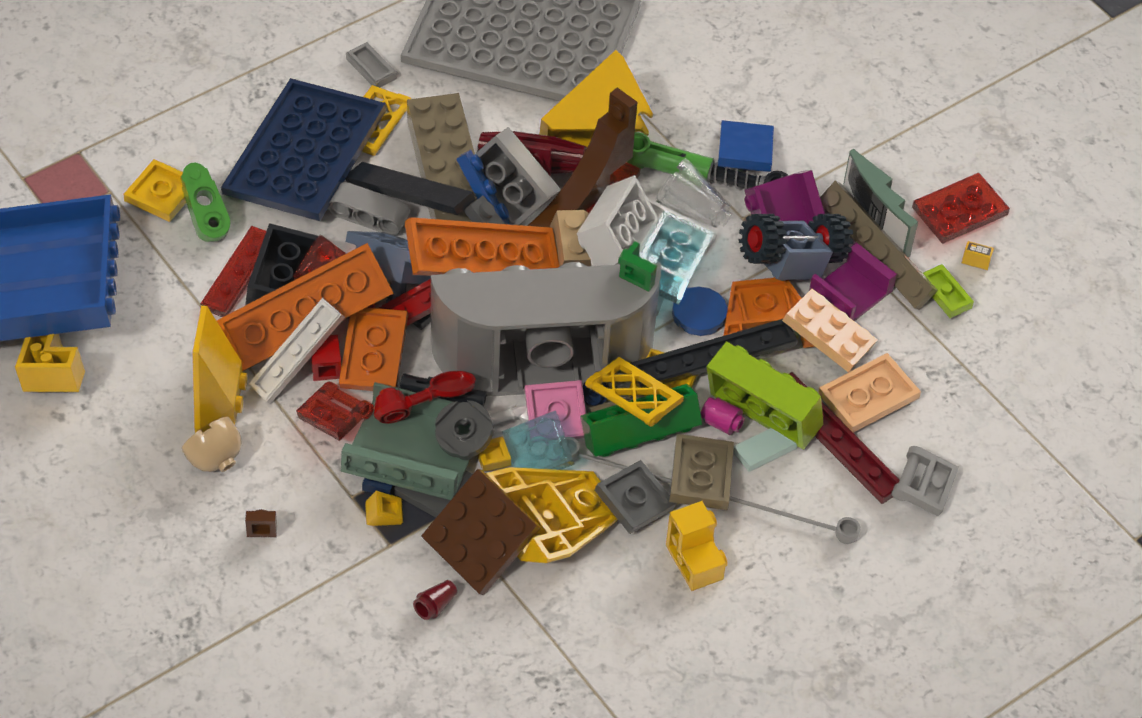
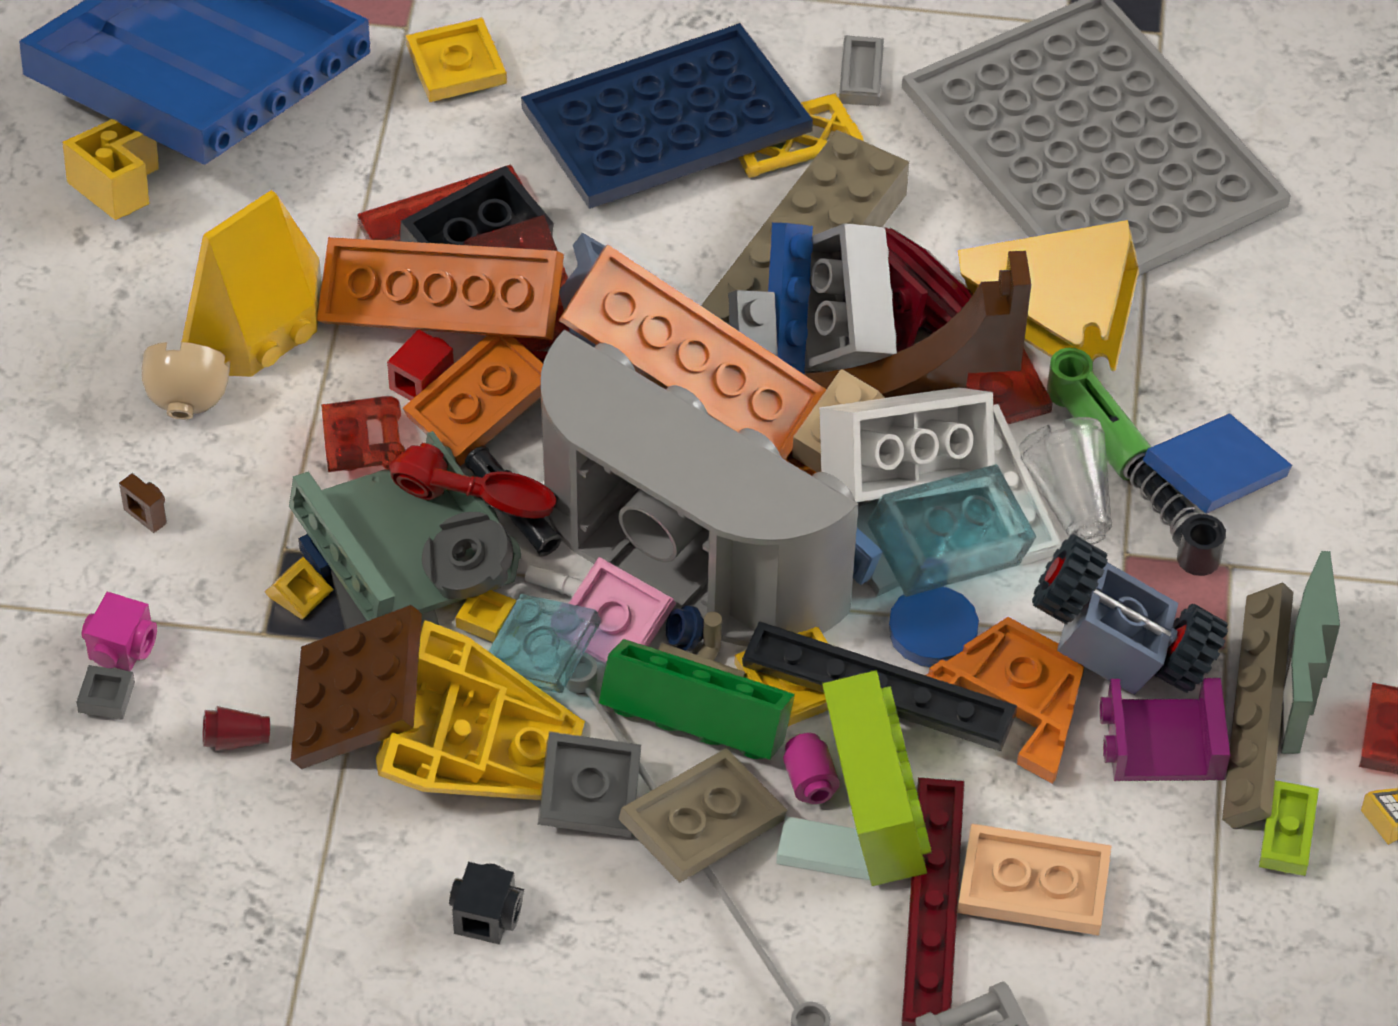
camera: 45 degrees right, 0 degrees up
(196, 183) = (483, 71): bright green piece -> none
(296, 351) = (385, 333): white tile -> none
(324, 595) = (119, 632): none -> dark pink brick
(350, 630) = (105, 692): none -> dark grey plate
(369, 208) = (664, 233): light grey beam -> none
(410, 188) = (716, 234): black tile -> none
(634, 374) = (711, 692): yellow window -> none
(635, 269) = (806, 483): green bracket -> none
(648, 587) = (485, 902): none -> black brick
(693, 546) = (590, 894): yellow brick -> none
(788, 197) = (1179, 560): magenta panel -> none
(830, 330) = (1062, 763): light nougat plate -> none

